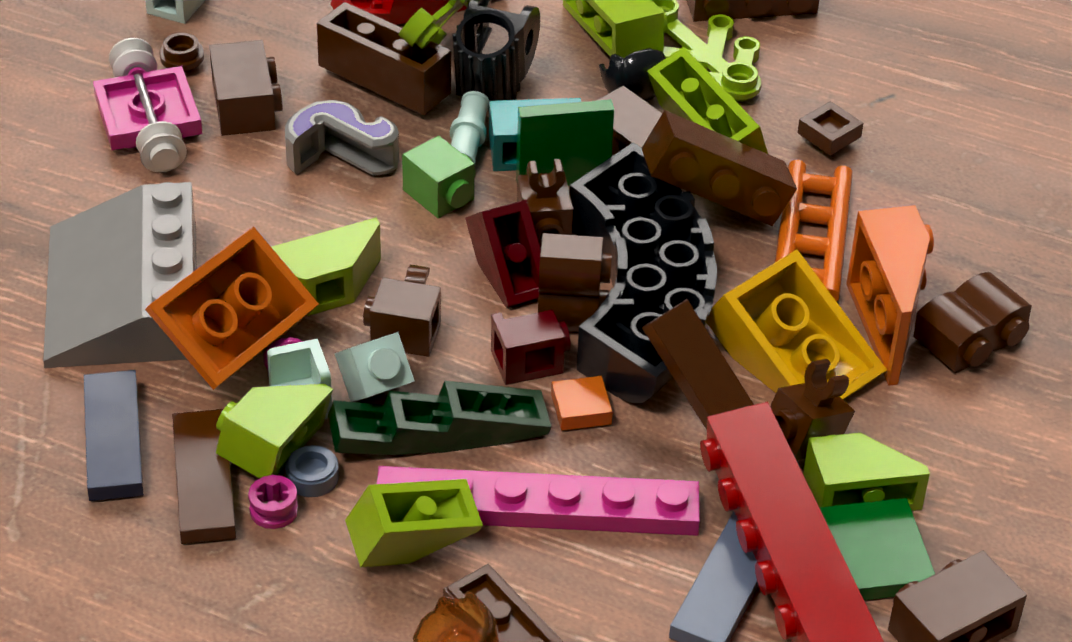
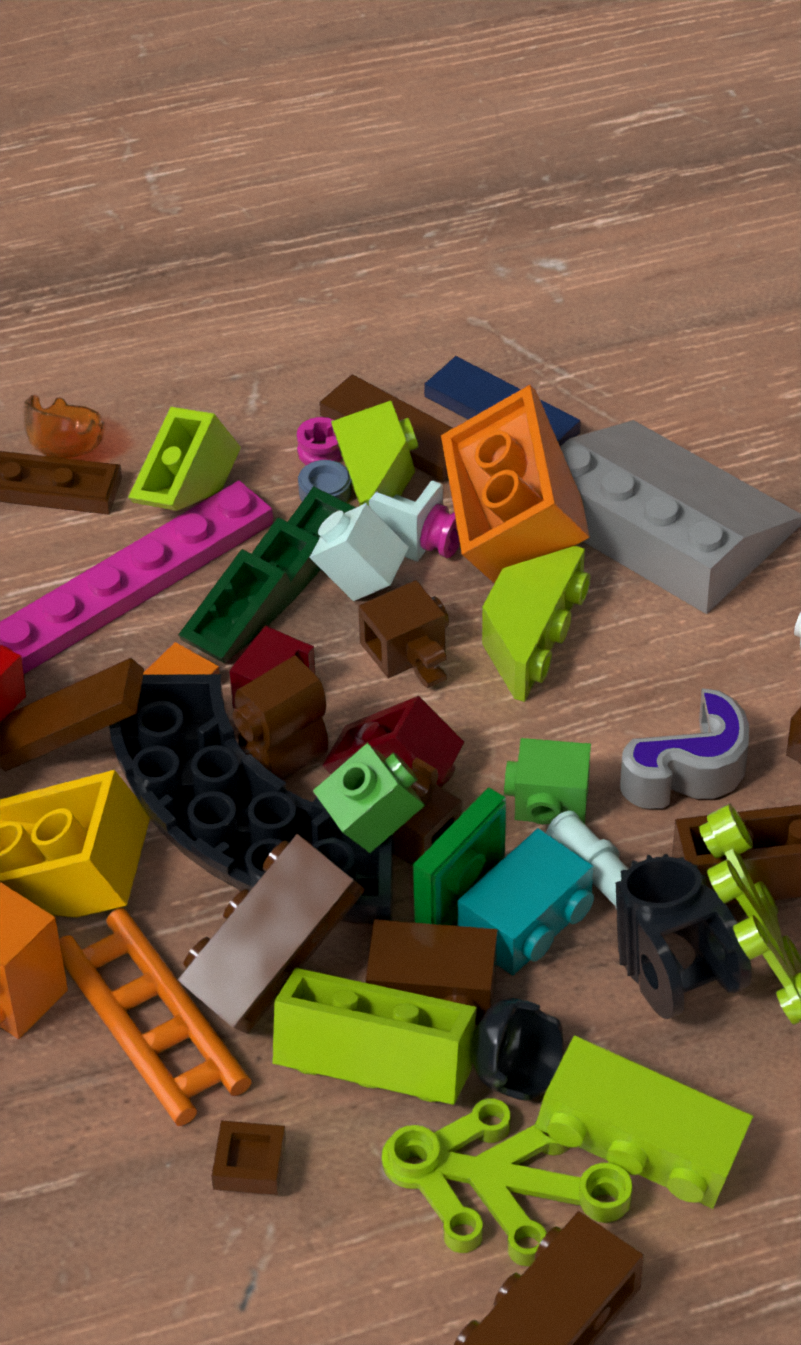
camera: 140 degrees right, 5 degrees up
(594, 157) = (370, 796): none -> bright green brick

